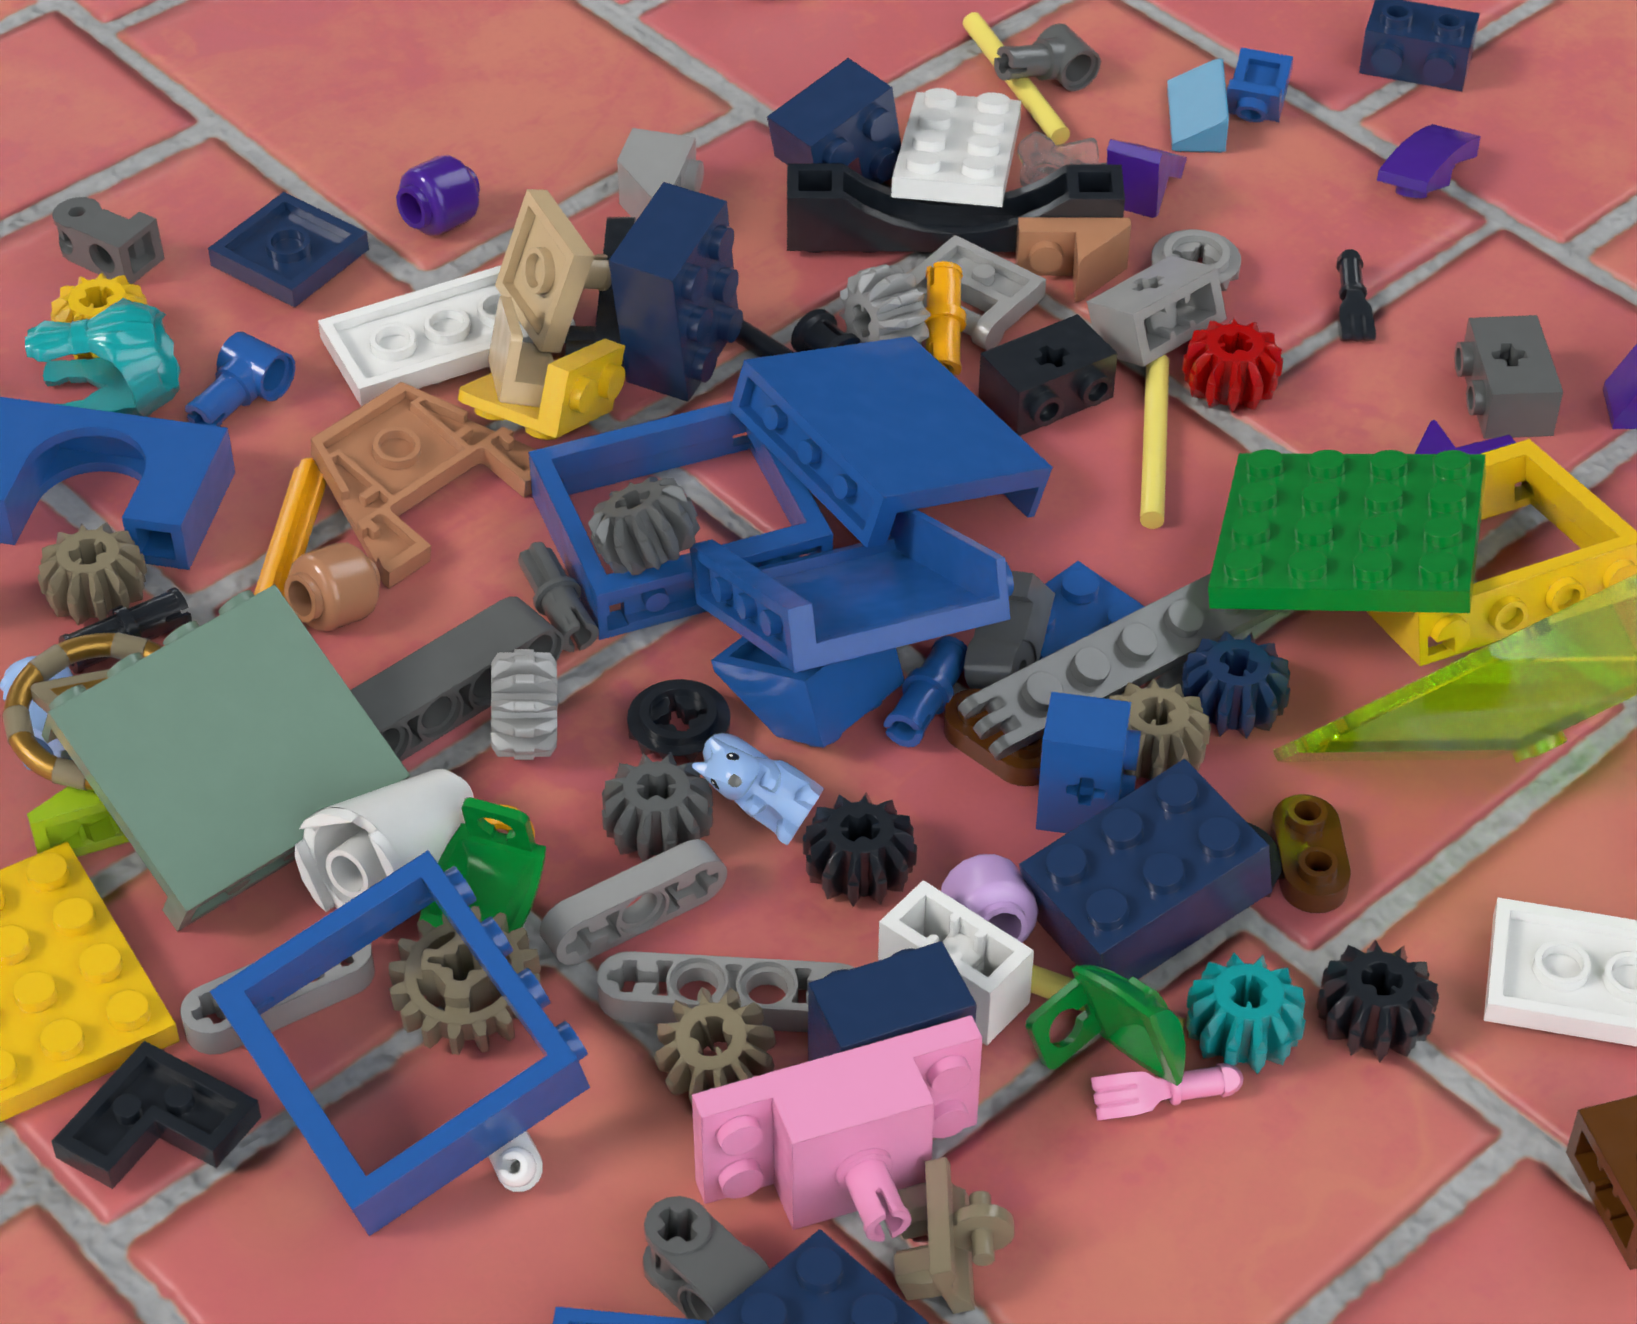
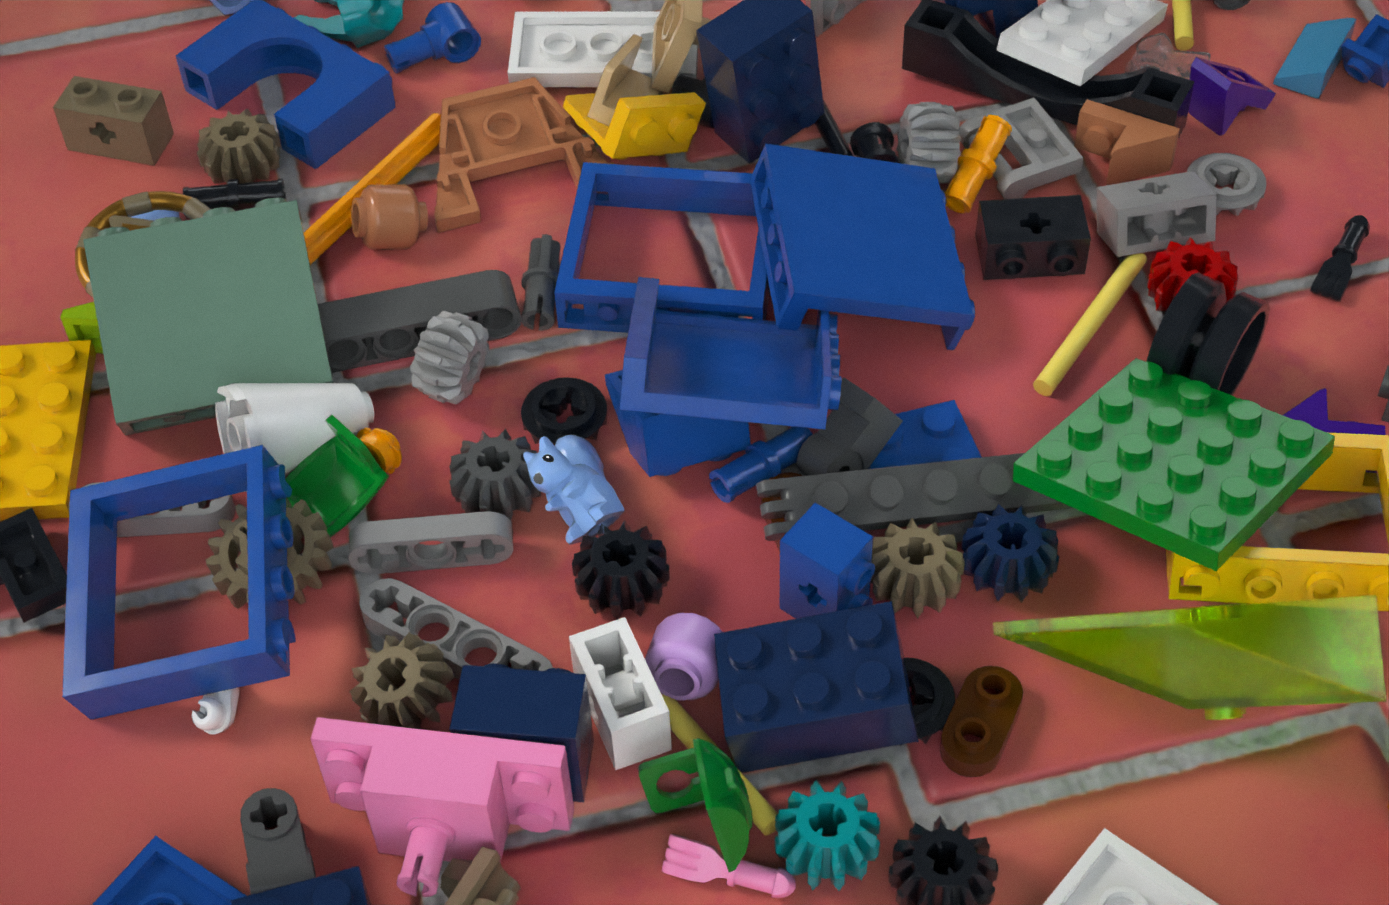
camera: 30 degrees right, 5 degrees up
(644, 525) = (610, 249): dark grey gear -> none
(1292, 412) = (1208, 336): none -> black wheel

